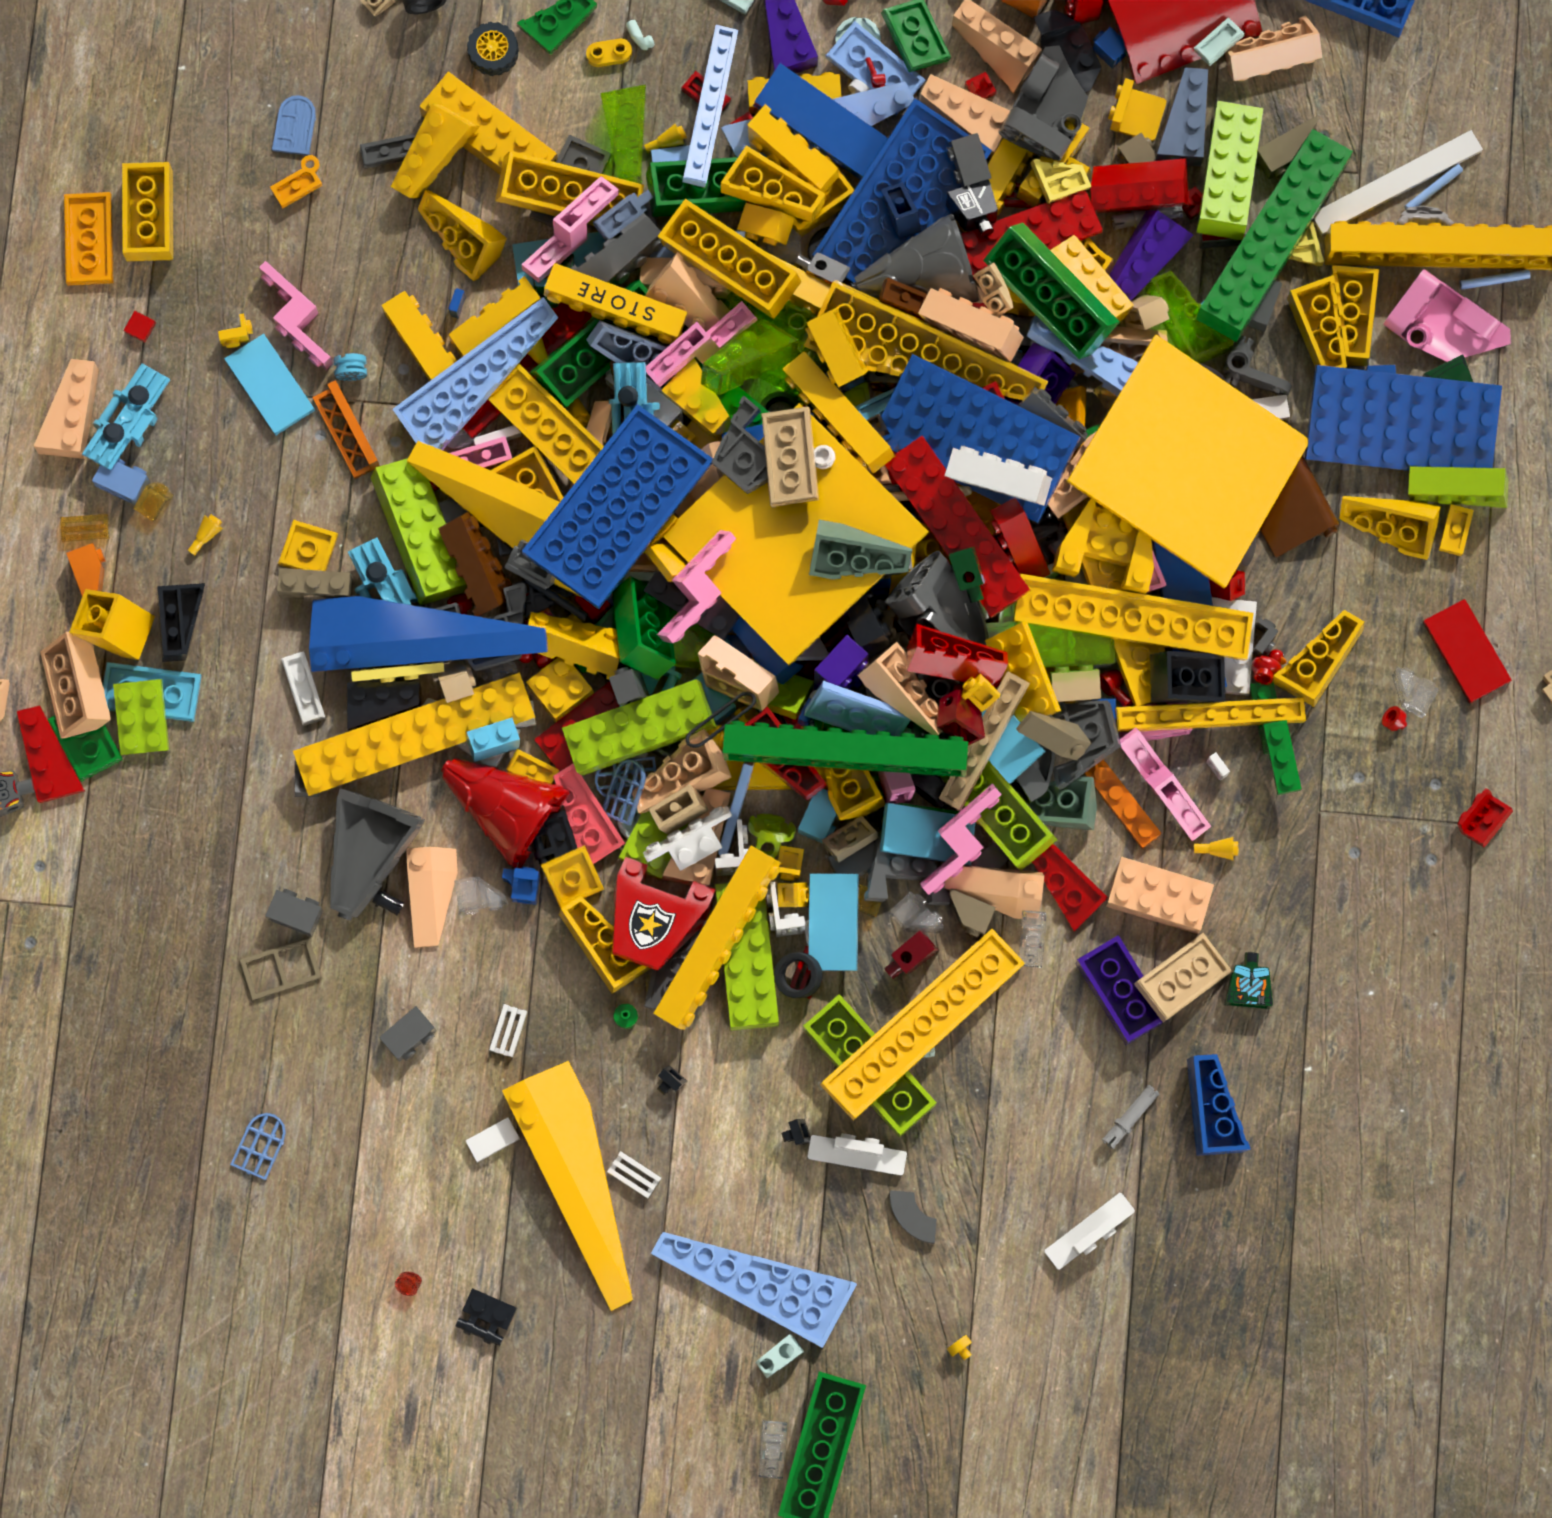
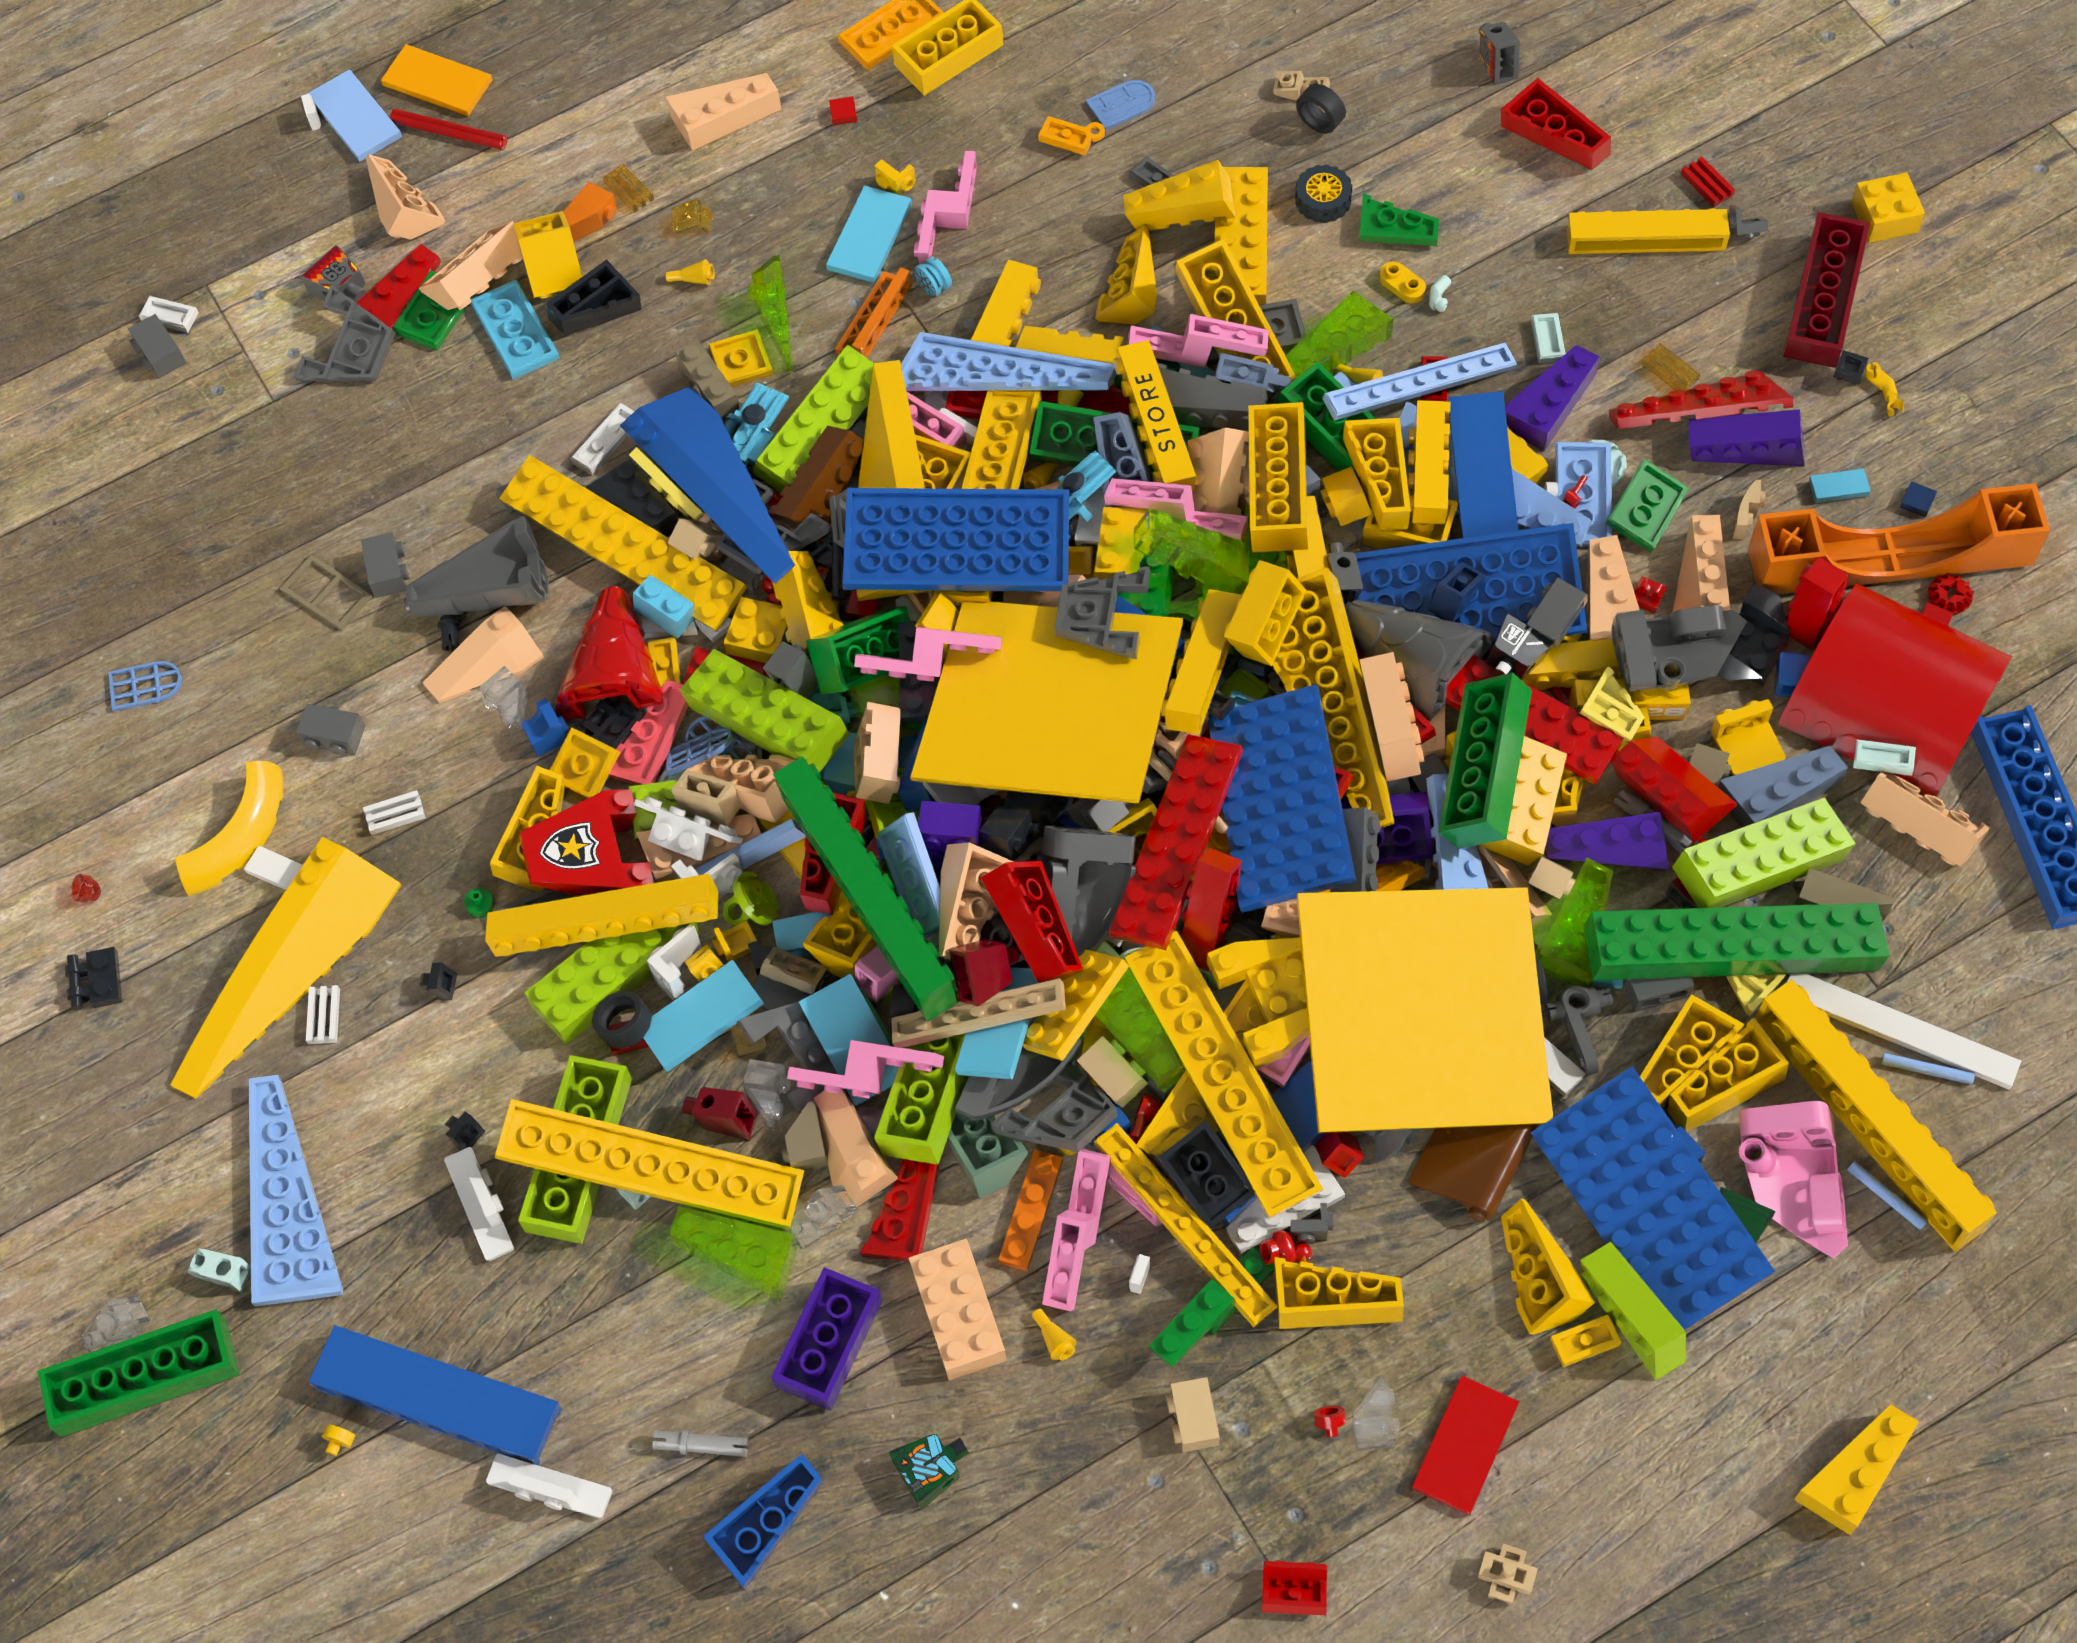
camera: 60 degrees right, 15 degrees down
(82, 814) = (358, 348): none -> dark grey wing
(122, 481) = (689, 179): medium blue brick -> none
(131, 422) = (749, 148): medium azure piece -> none
(141, 717) = (483, 333): lime plate -> none
(275, 492) = (770, 300): none -> clear neon green wedge
(451, 1144) = (242, 834): none -> yellow brick
(457, 303) = (1062, 318): blue tile -> none
(715, 714) = (845, 776): black piece -> none
(790, 456) = (1116, 637): tan tile -> none
(816, 854) = (759, 954): none -> black tile
(824, 456) = (1141, 666): white plate -> none
(849, 551) = (1060, 745): sand green wedge -> none
(902, 297) = (1366, 637): reddish brown tile -> none
(911, 1218) = (447, 1300): dark grey tile -> none
(966, 561) = (1131, 869): dark green torso -> none
(977, 1265) = (435, 1395): none -> blue tile
(980, 692) = (1017, 966): yellow bracket -> none
(995, 289) = (1449, 708): tan slope -> none
(1001, 477) = (1251, 829): white brick -> none
(1021, 1003) = (738, 1248): none -> clear neon green wedge
(1055, 734) = (1035, 1075): dark tan slope -> none
(1183, 977) = (883, 1389): tan tile -> none
(1333, 799) = (1194, 1415): none -> tan brick
(1424, 215) = (1887, 1070): light grey piece -> none

